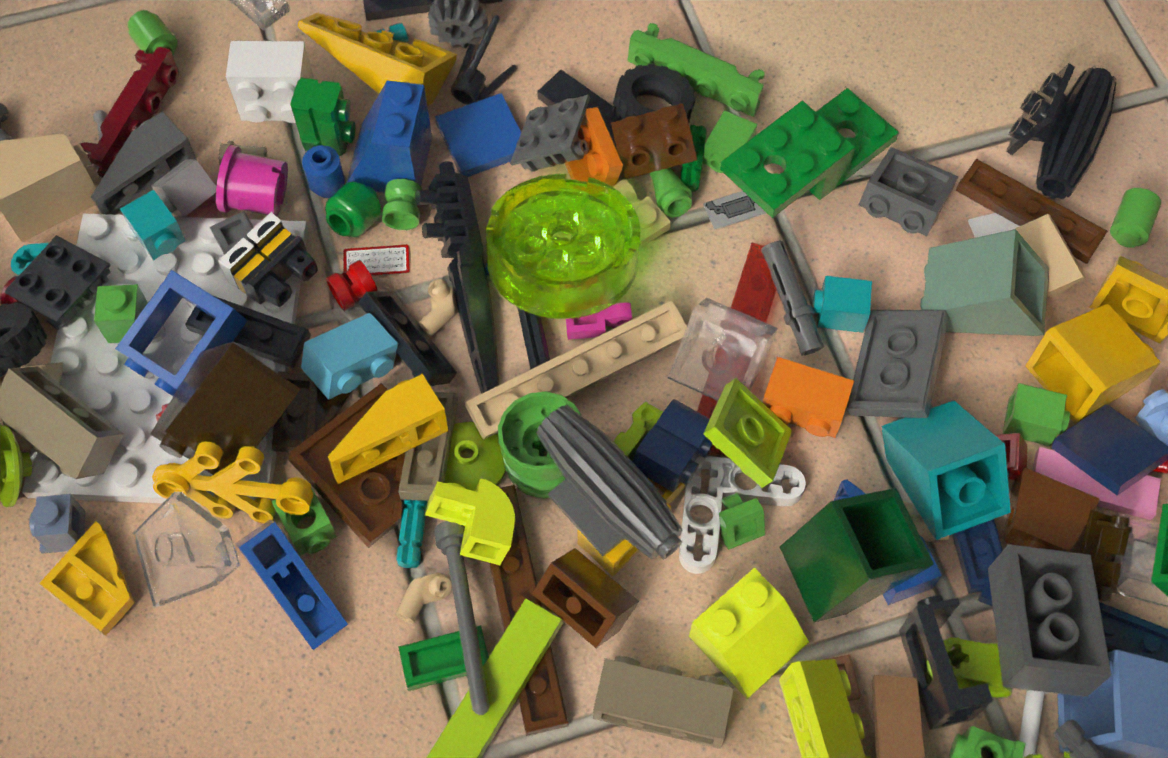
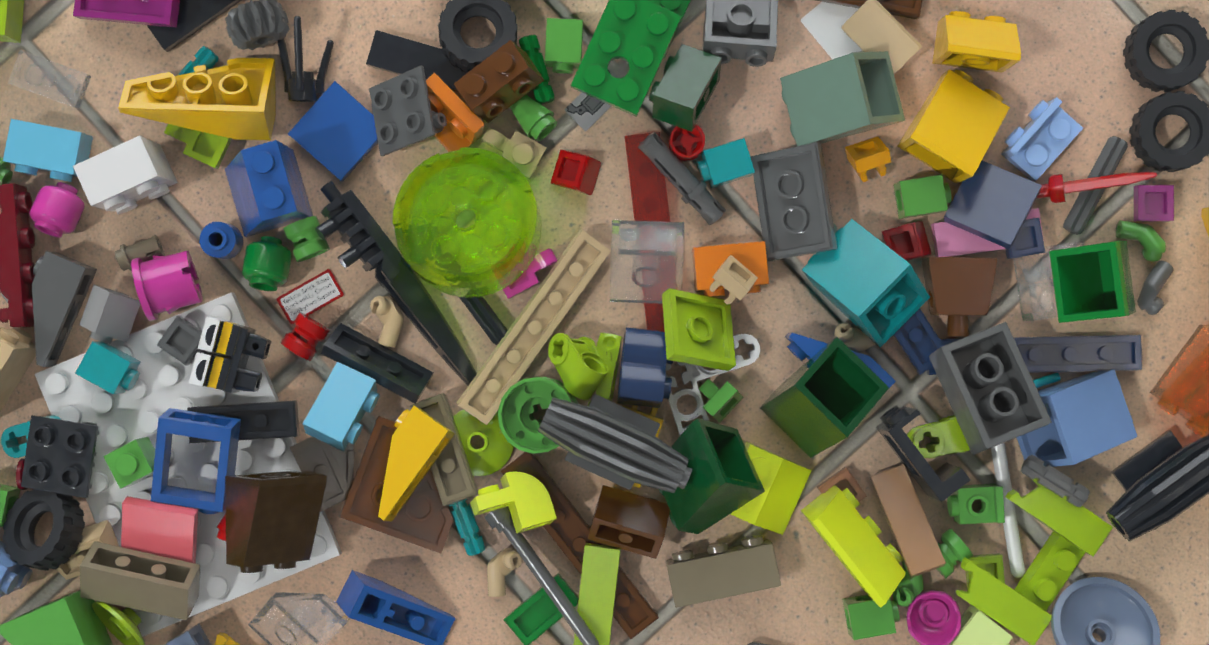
camera: 25 degrees left, 25 degrees up
(107, 381) = (159, 528): none -> coral tile
(193, 91) = (57, 209): none -> dark pink head
(207, 37) = (46, 148): none -> medium azure brick
(230, 491) = (322, 561): yellow plant -> none
(312, 538) = (364, 560): bright green brick -> none
(322, 115) = (192, 190): green brick -> none
(354, 89) = (201, 145): none -> lime plate
(608, 411) = (577, 364): none -> lime piece
(689, 257) = (576, 172): none -> red slope
(699, 581) = (719, 480): none -> dark green slope
(808, 392) = (734, 278): none -> tan tile
(811, 266) = (691, 141): none -> red wheel
(832, 216) = (685, 87): none -> brick
(992, 356) = (868, 155): none -> light orange tile
(1103, 540) = (1010, 294): dark brown hinge -> none
(1137, 502) = (1028, 241): none -> dark blue tile

